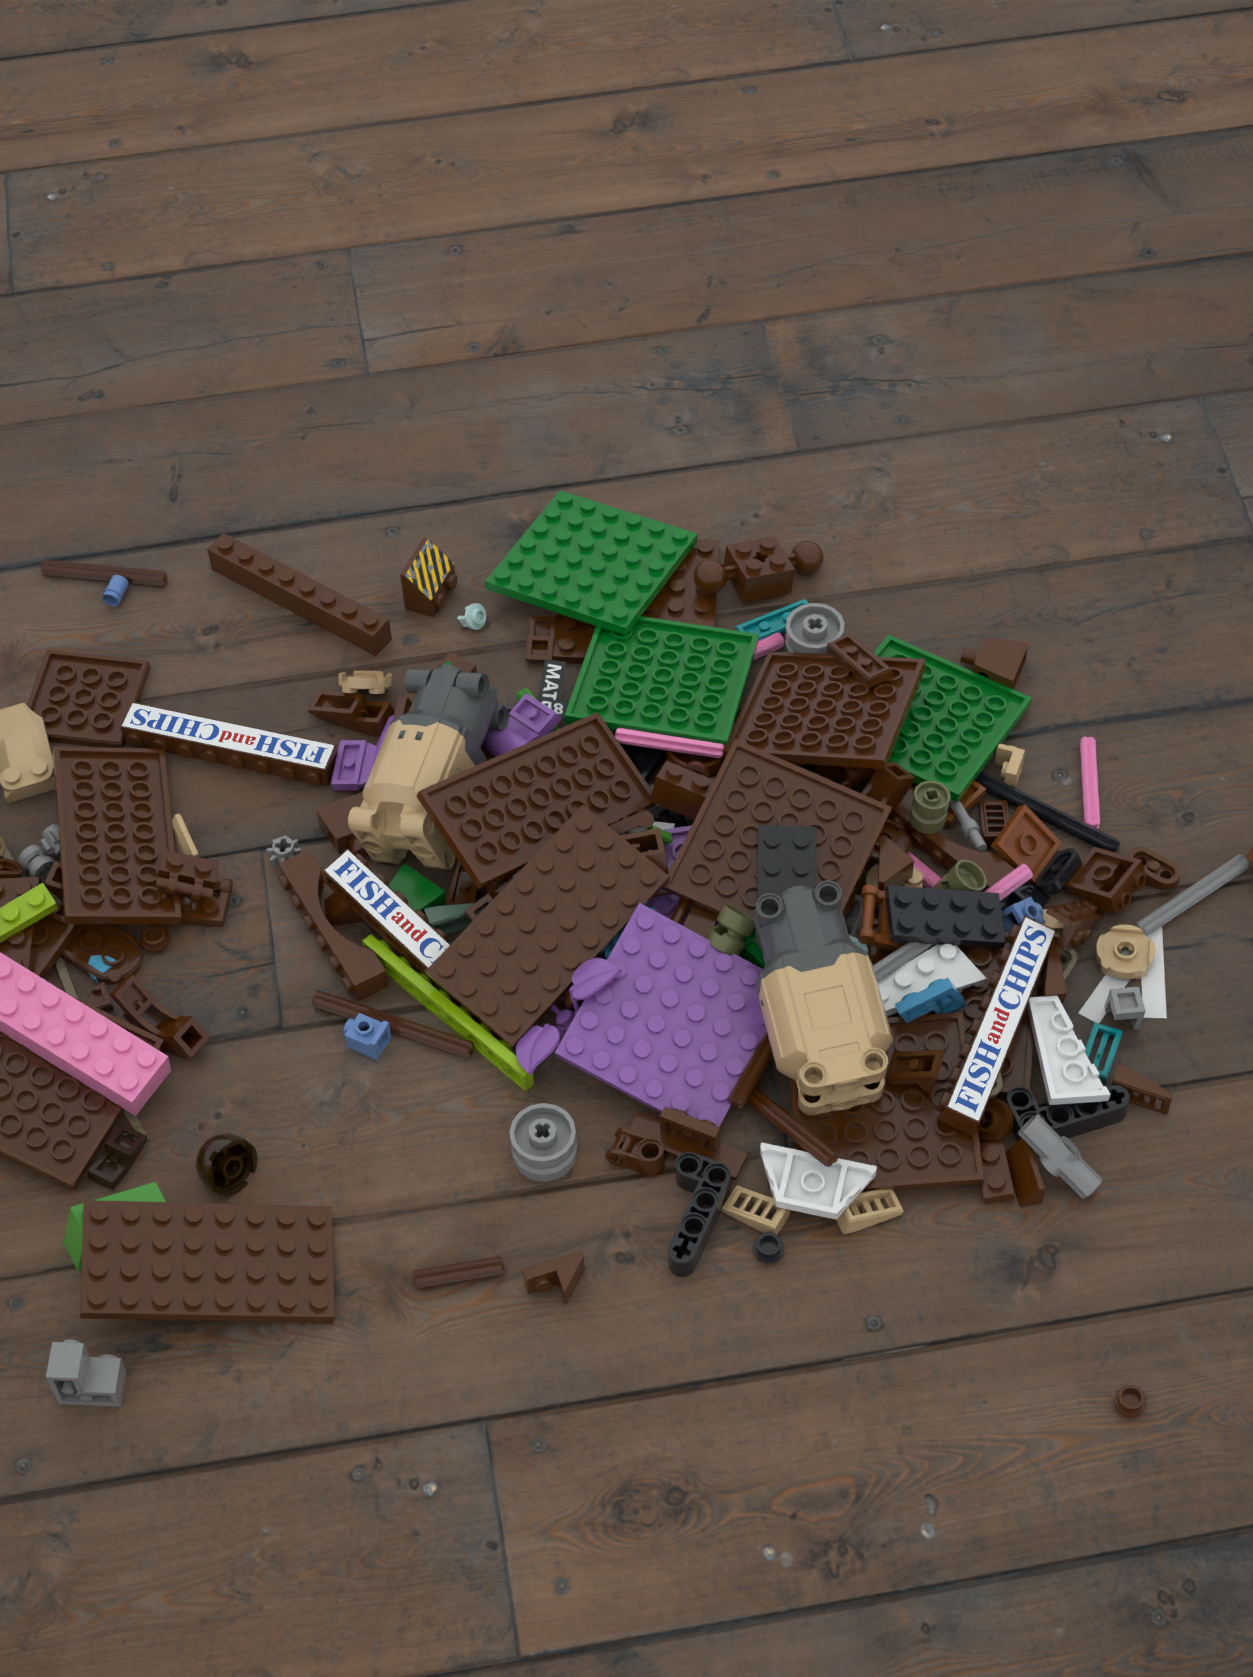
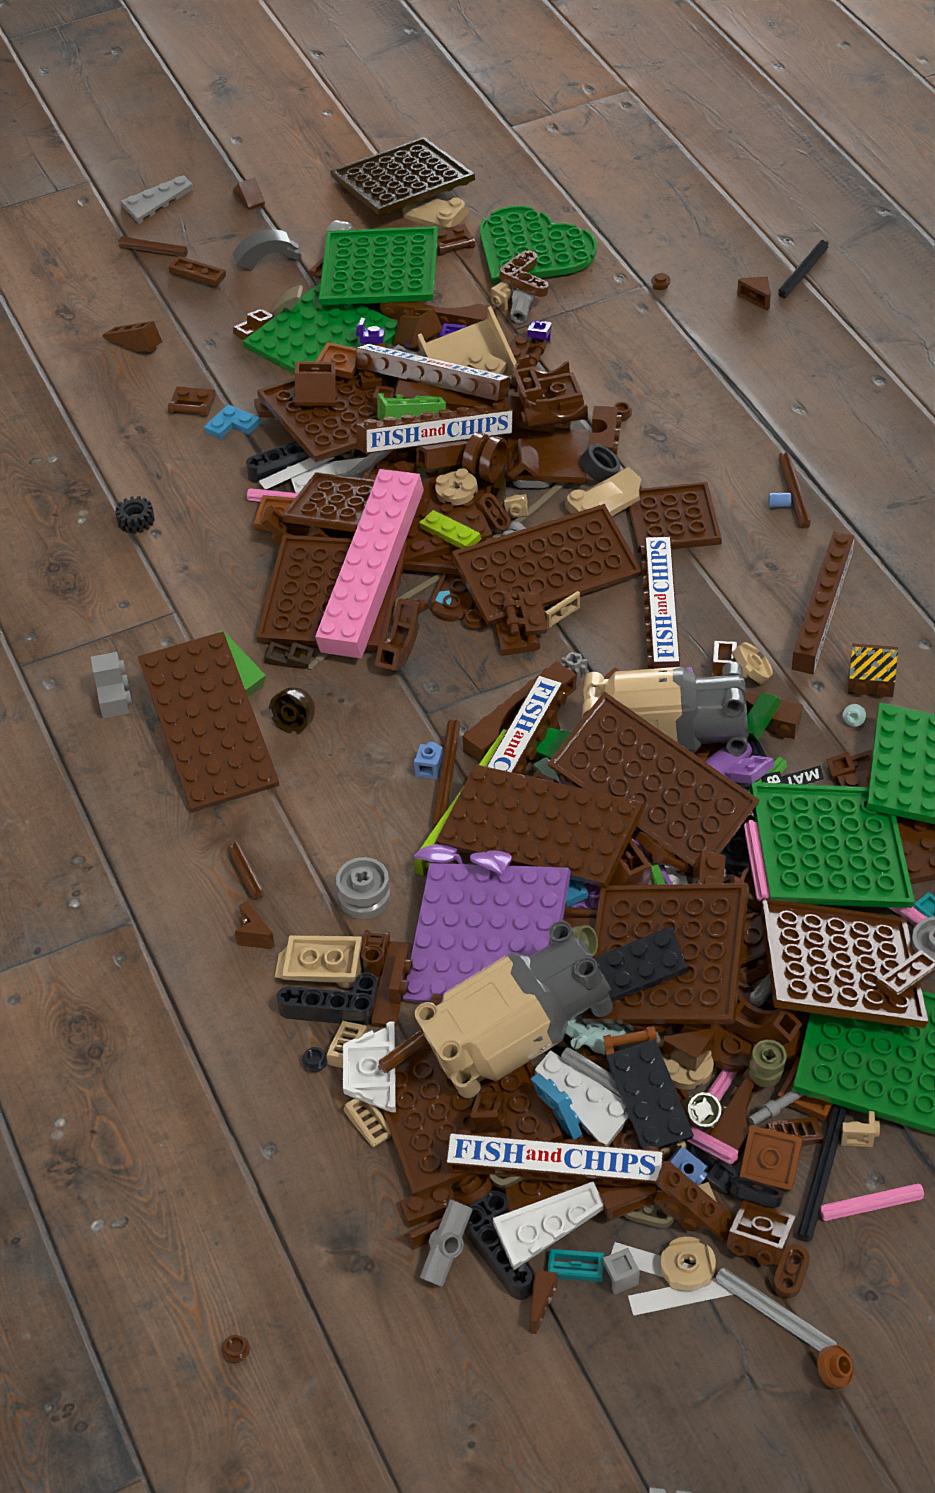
camera: 75 degrees right, 5 degrees down
(632, 1212) = (321, 959): none -> tan slope

